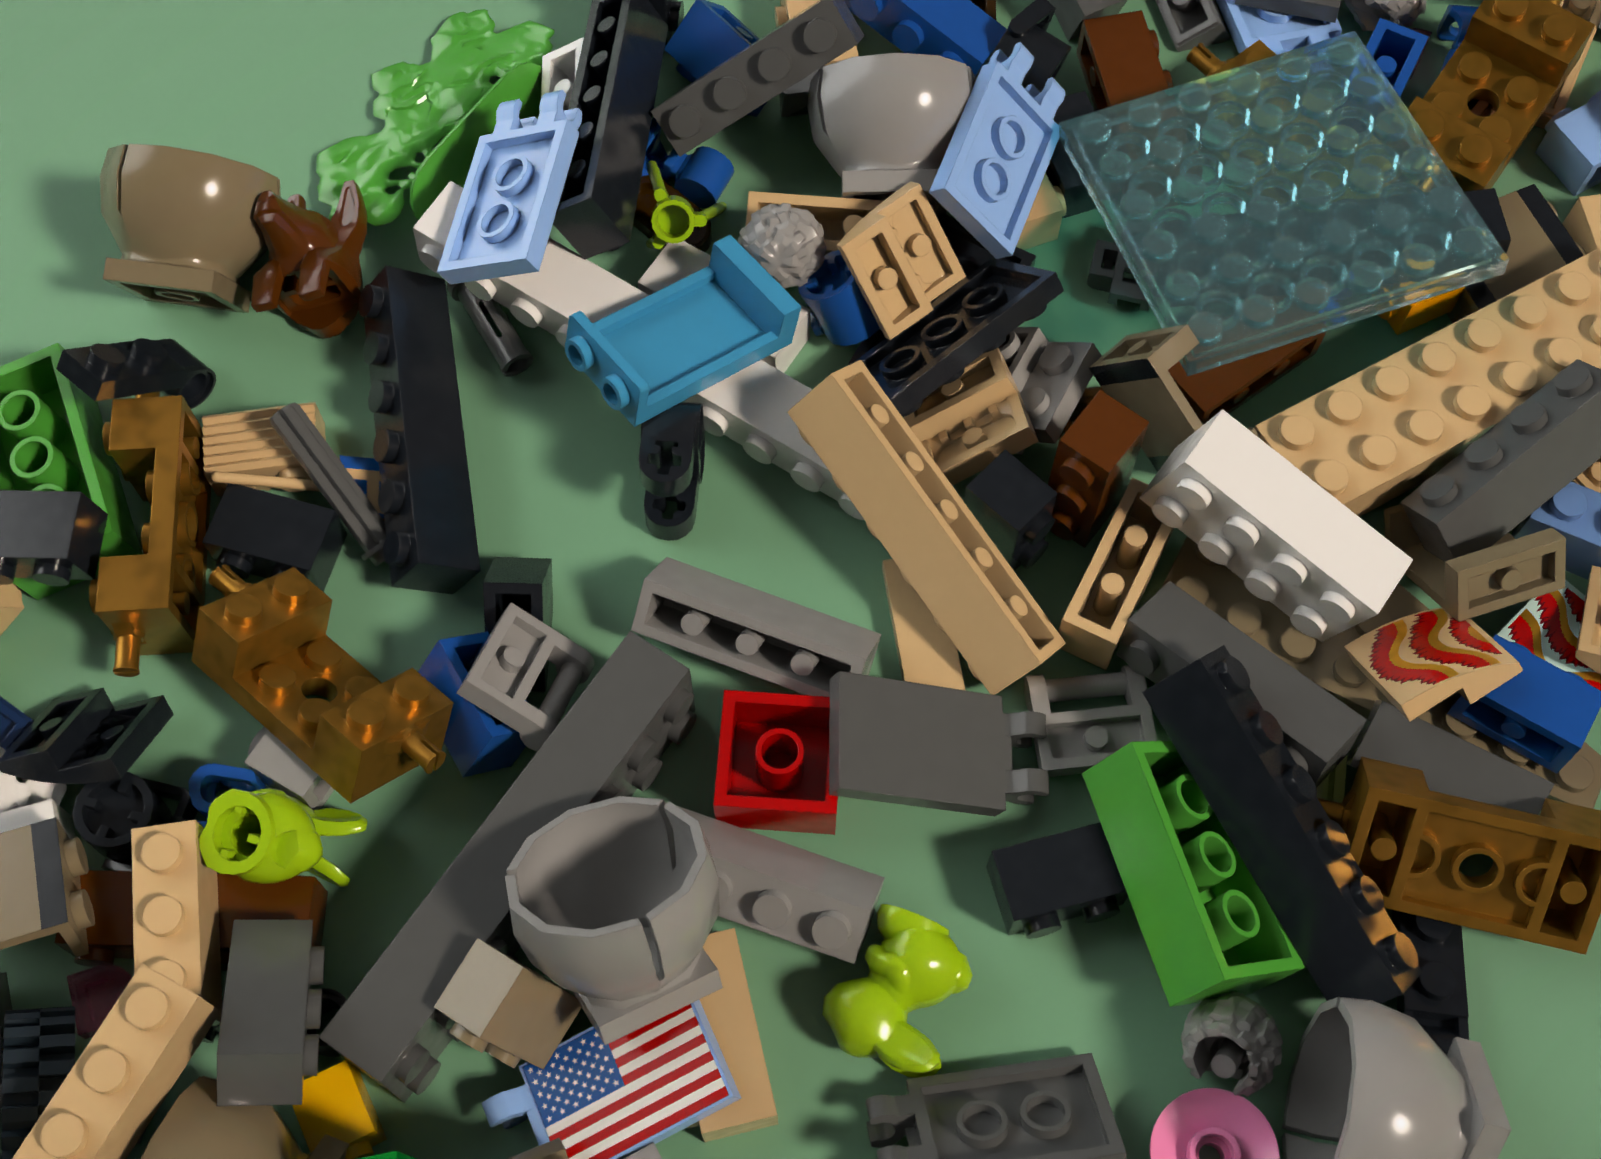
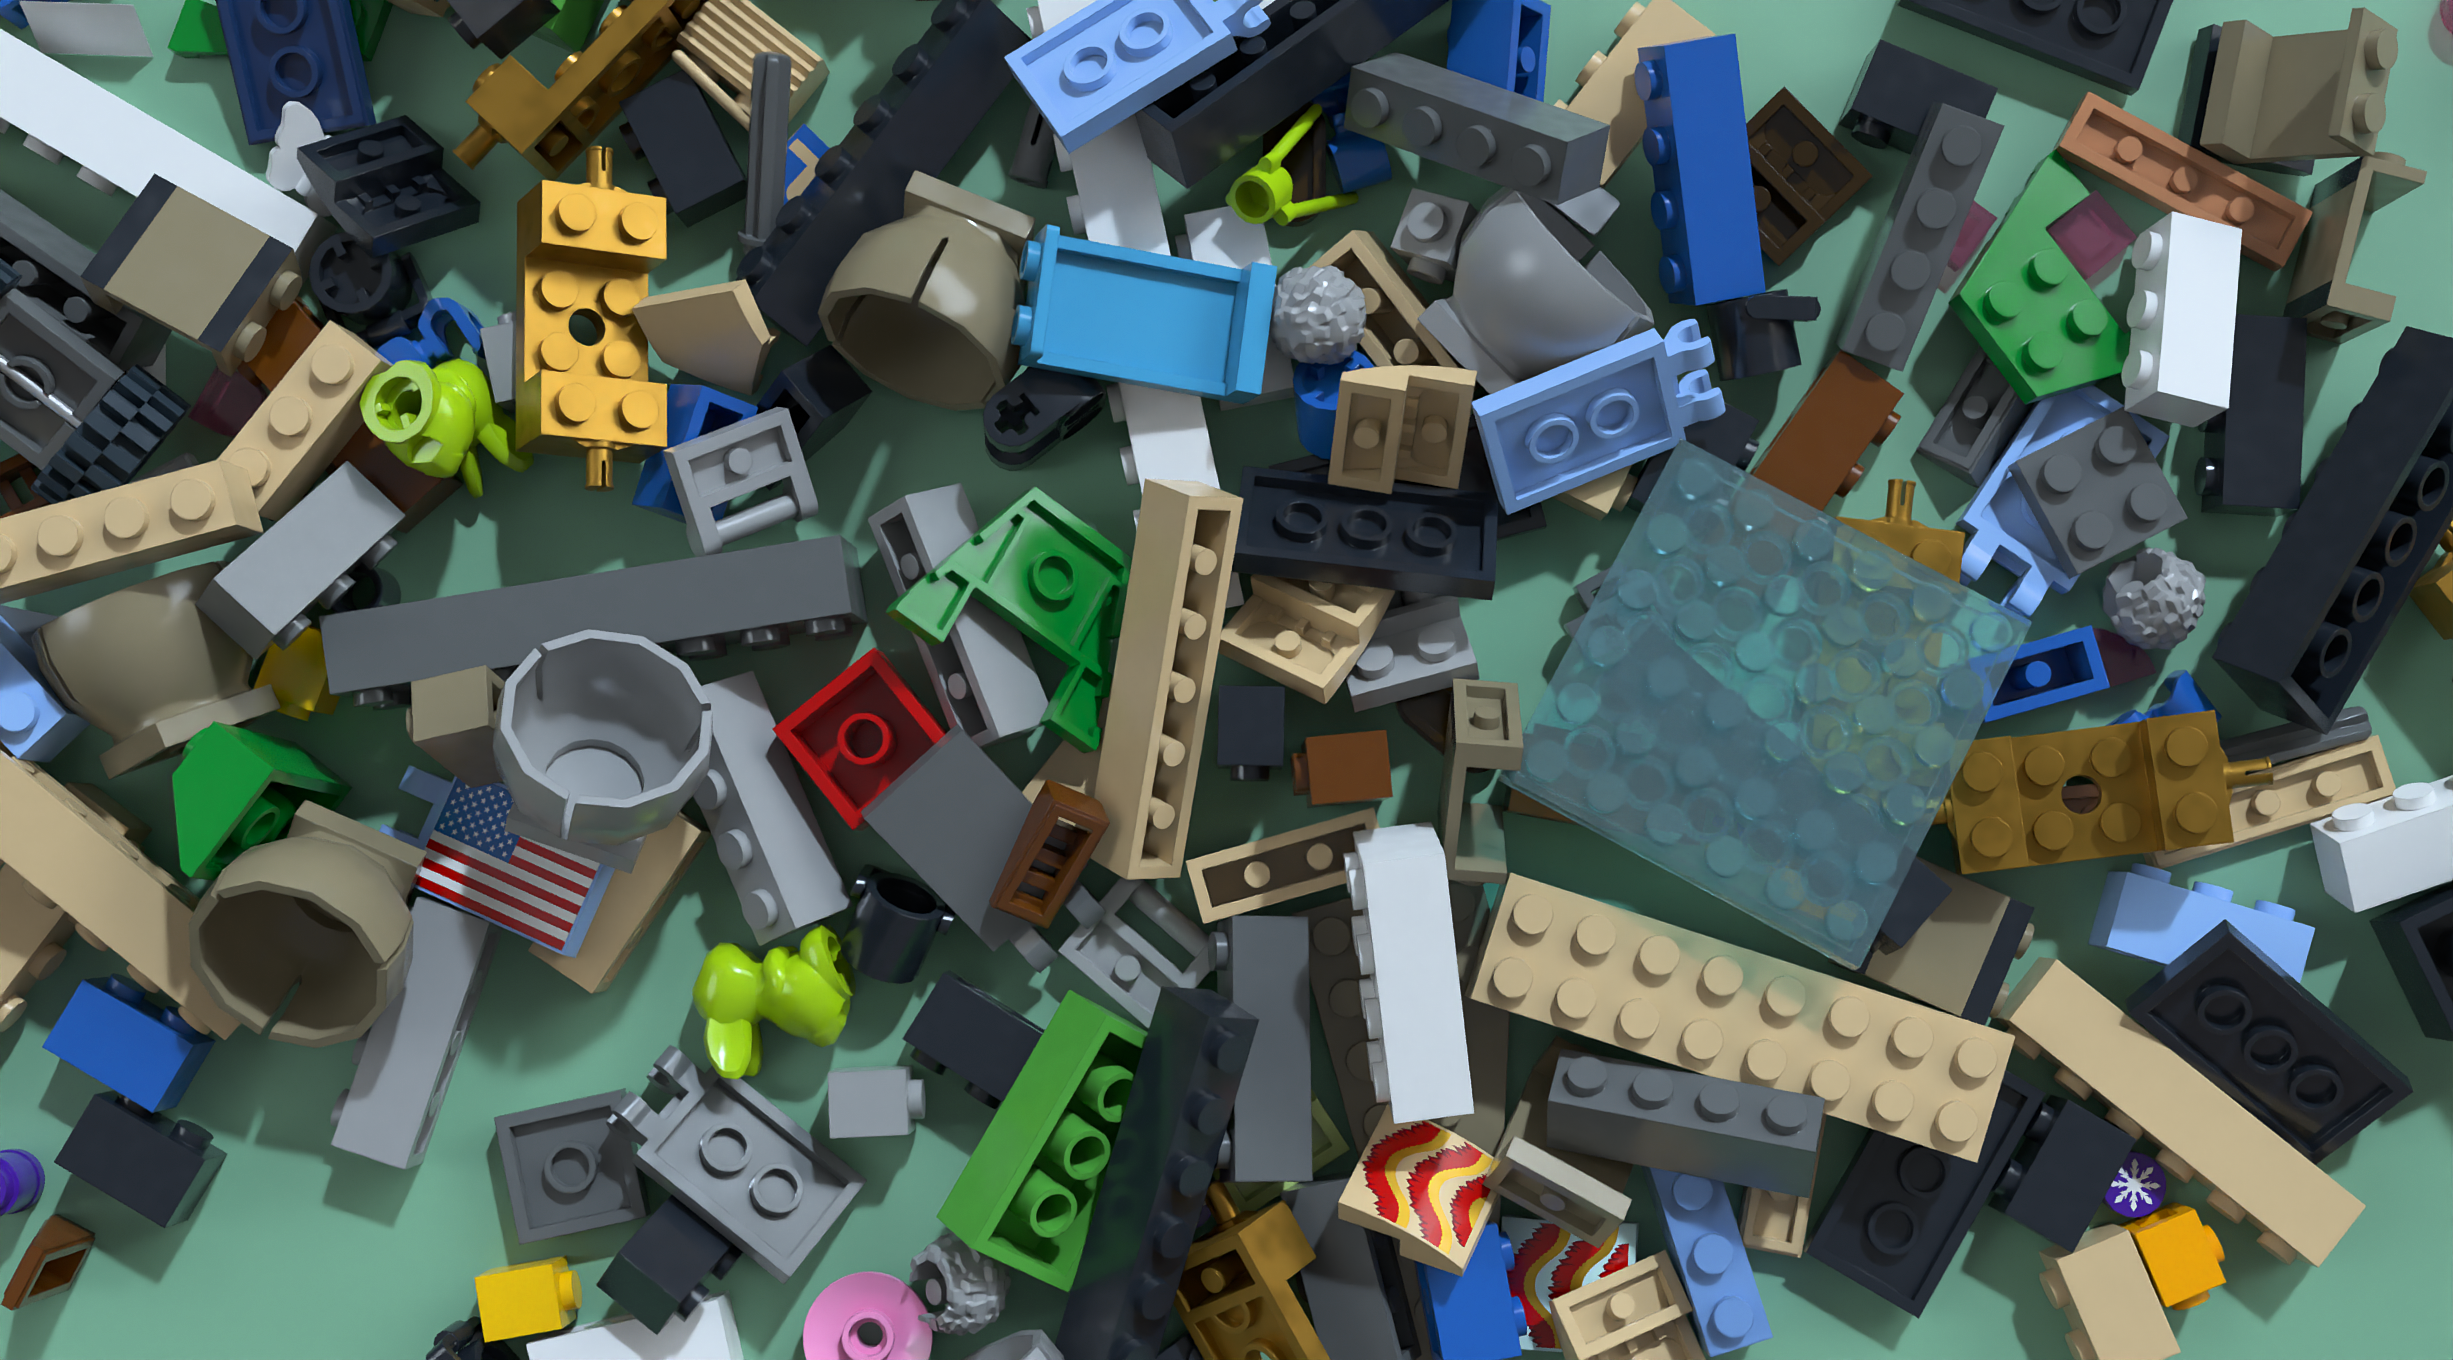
camera: 50 degrees right, 20 degrees up
(405, 617) = (710, 333): none -> tan slope
(540, 457) = (933, 297): none -> dark tan plate
(794, 555) = (1048, 581): none -> green wing
(798, 163) = (1432, 234): none -> light grey brick
(924, 859) = (893, 925): none -> black piece
(987, 681) = (1042, 821): none -> reddish brown slope
(1040, 987) = (874, 1101): none -> light grey brick

